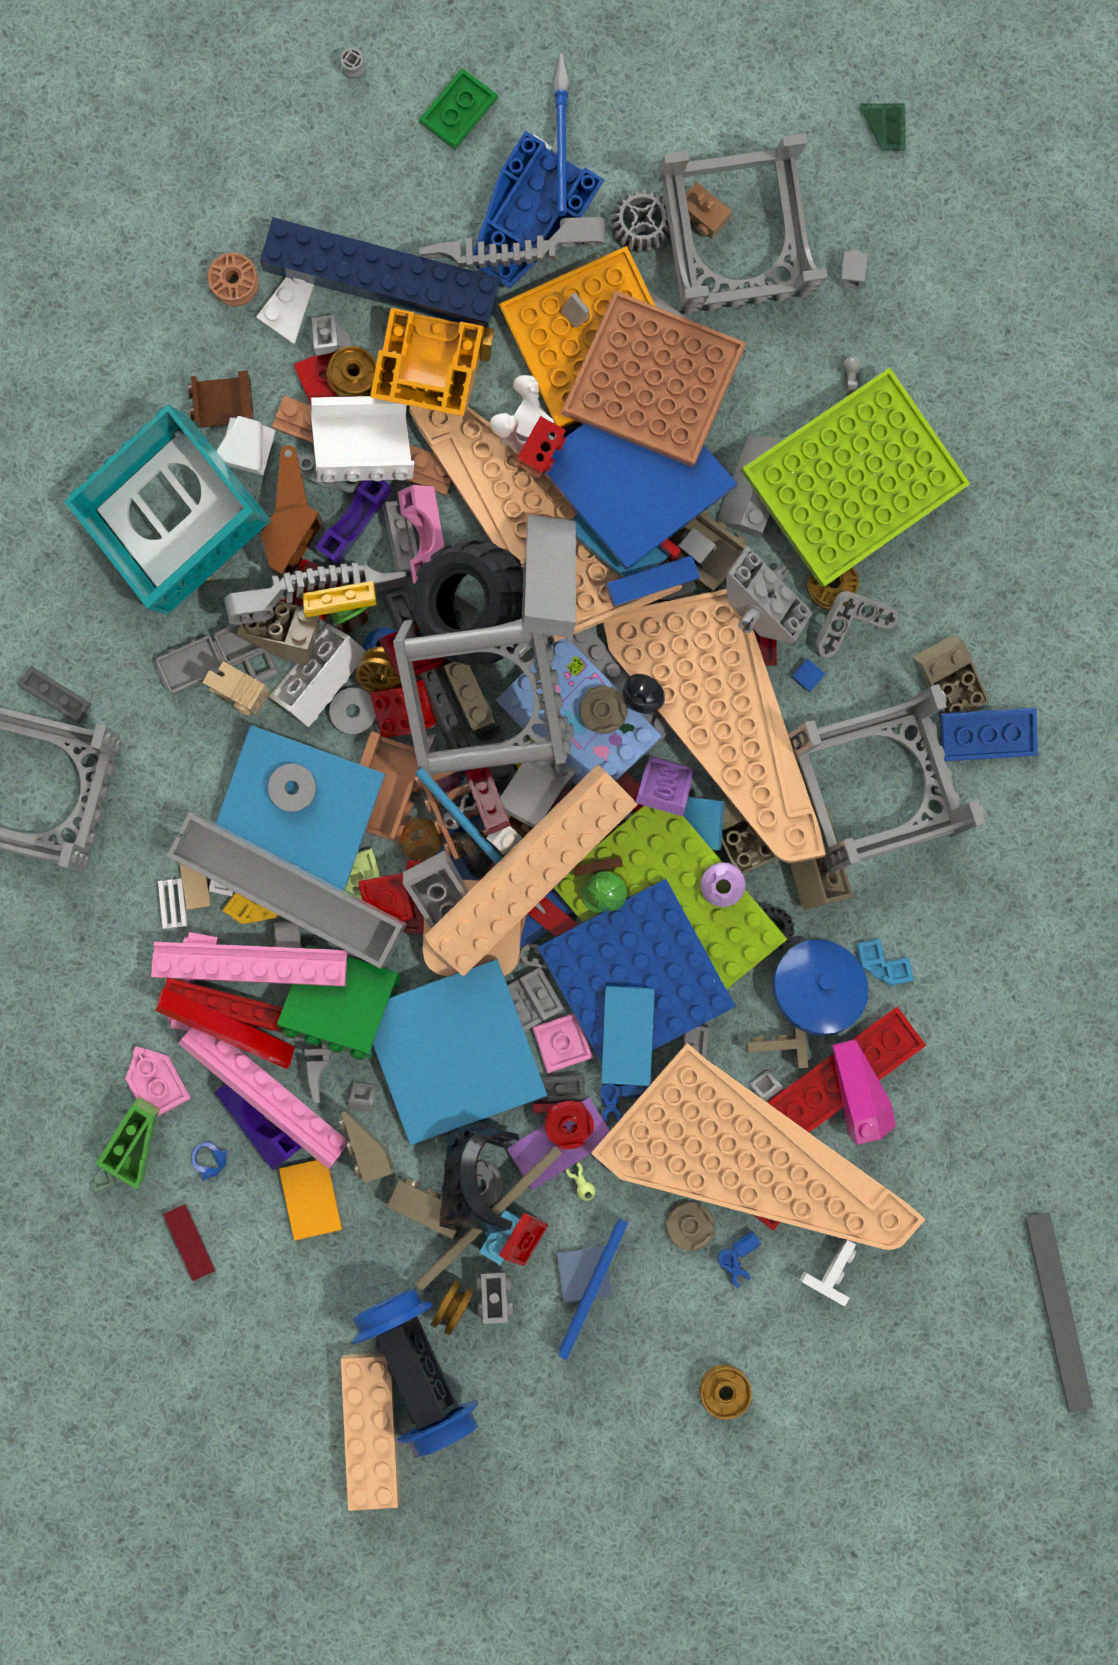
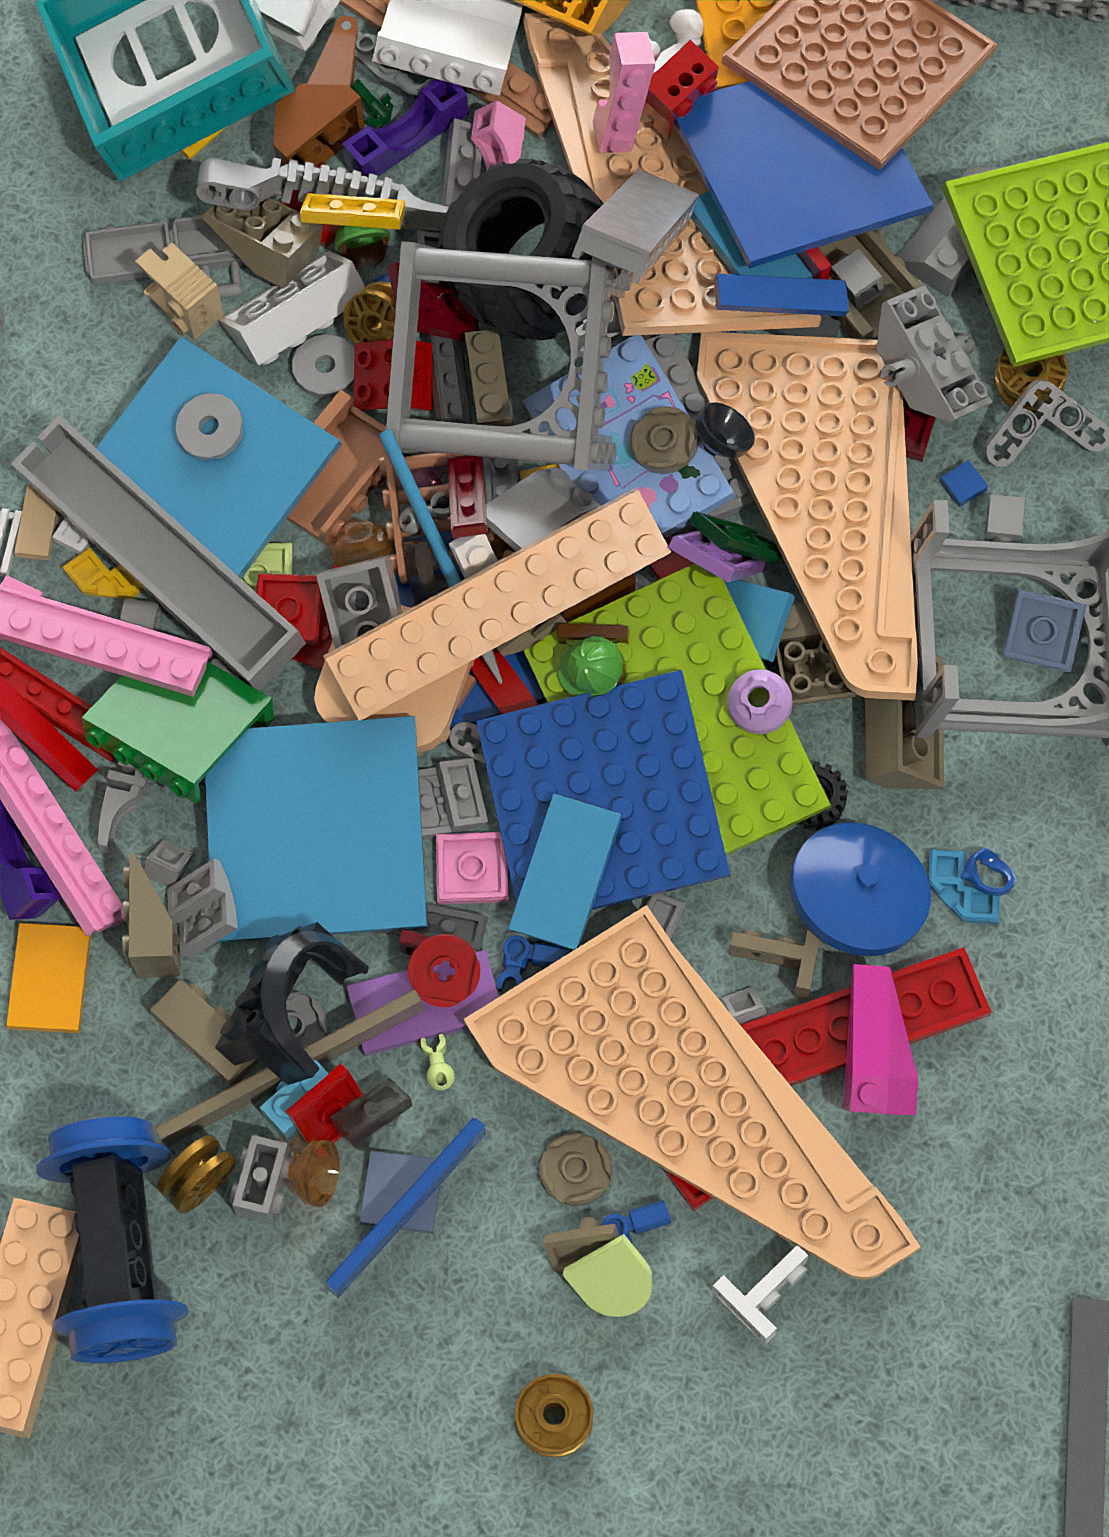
camera: 20 degrees right, 15 degrees down
(331, 508) = (382, 114): none -> dark green piece
(398, 1126) = (202, 908): none -> light grey slope
(509, 459) = (630, 77): none -> bright pink arch
(526, 1282) = (315, 1172): none -> clear orange piece
(551, 1232) = (371, 1112): none -> clear smoke tile
(671, 765) = (736, 537): none -> dark green tile
(713, 1278) = (572, 1245): none -> dark tan tile
(736, 1295) = (612, 1278): none -> yellowish green tile
(843, 698) = (1004, 519): none -> light grey brick
(891, 769) = (1044, 630): none -> sand blue tile
(897, 938) = (991, 860): none -> blue piece

